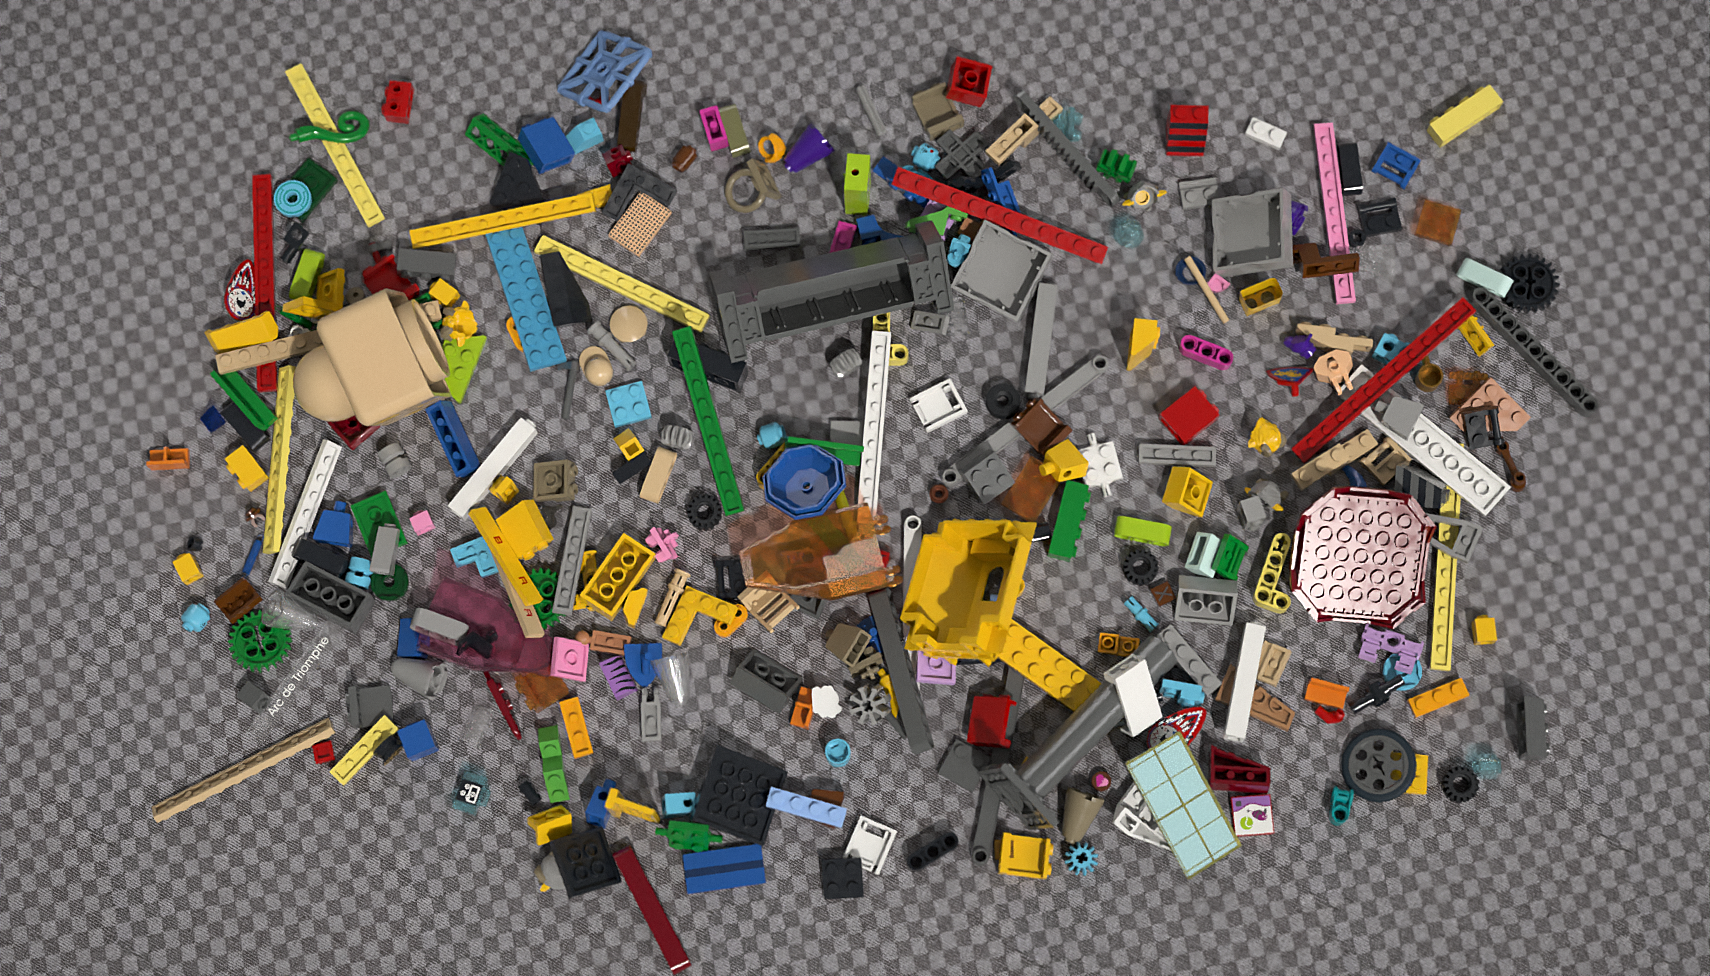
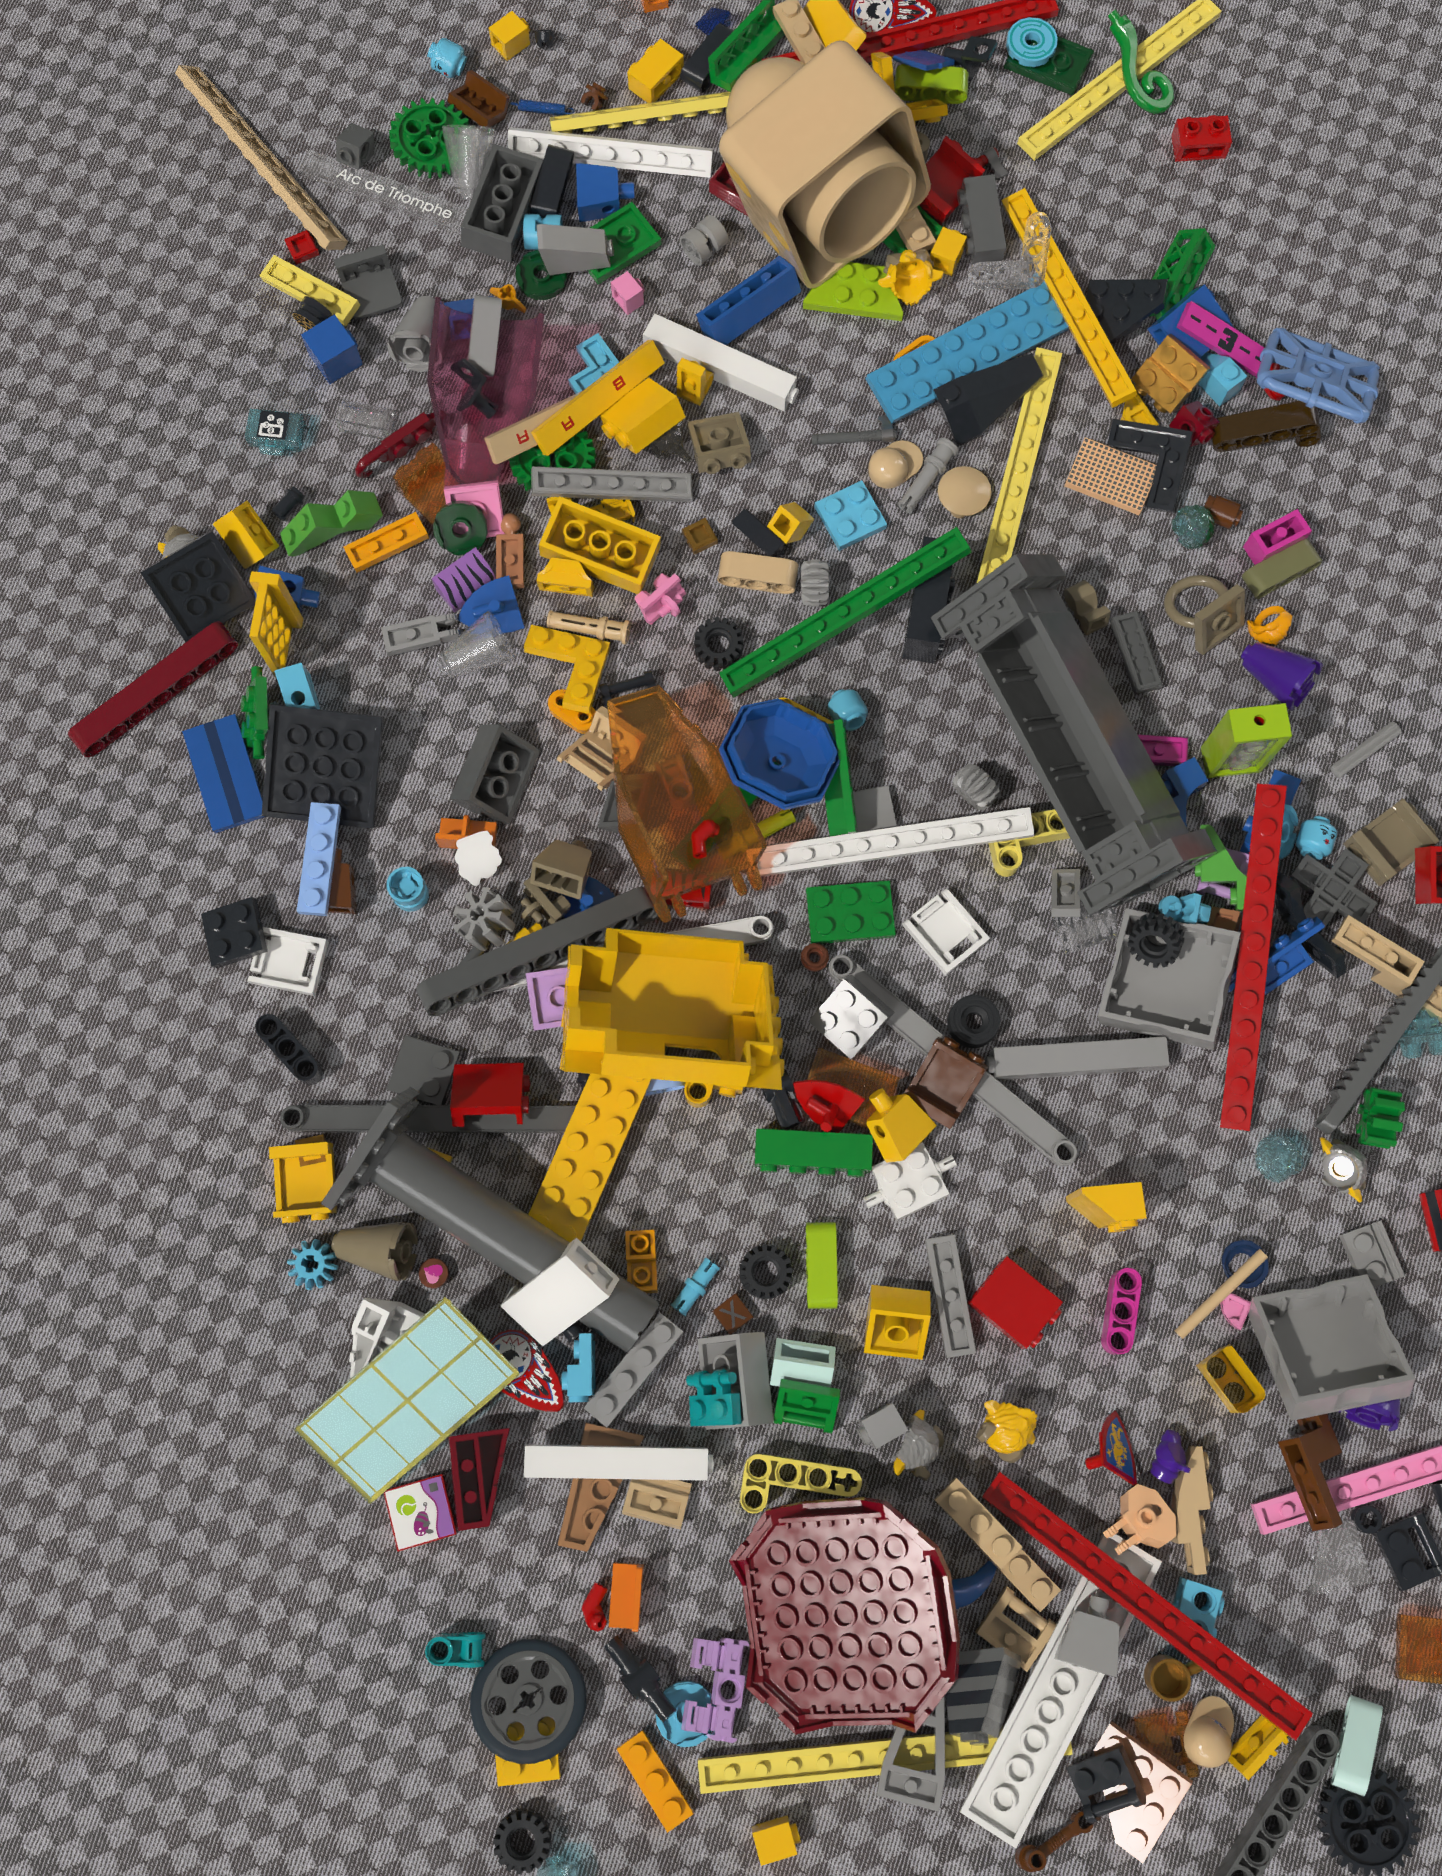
camera: 75 degrees right, 0 degrees up
(289, 276) = (923, 60): none -> blue piece
(403, 609) = (509, 298): none -> light orange piece
(473, 247) = (1020, 268): none -> clear beam
(561, 126) = (1220, 337): none -> dark pink tile
(571, 673) = (460, 512): none -> dark green tile
(578, 167) = (1170, 374): none -> pearl gold plate
(620, 509) = (699, 536): none -> pearl gold tile
(691, 178) = (1194, 526): none -> clear light blue piece
(733, 263) = (1083, 602): none -> dark tan leg
(846, 547) = (706, 829): none -> red arm
(912, 464) = (850, 912): none -> green plate
(983, 276) = (1158, 927): none -> black tyre
(1040, 503) = (827, 1103): none -> red shield
(1221, 617) = (718, 1408): none -> teal plate
(1464, 361) = (1209, 1732): none -> tan cap

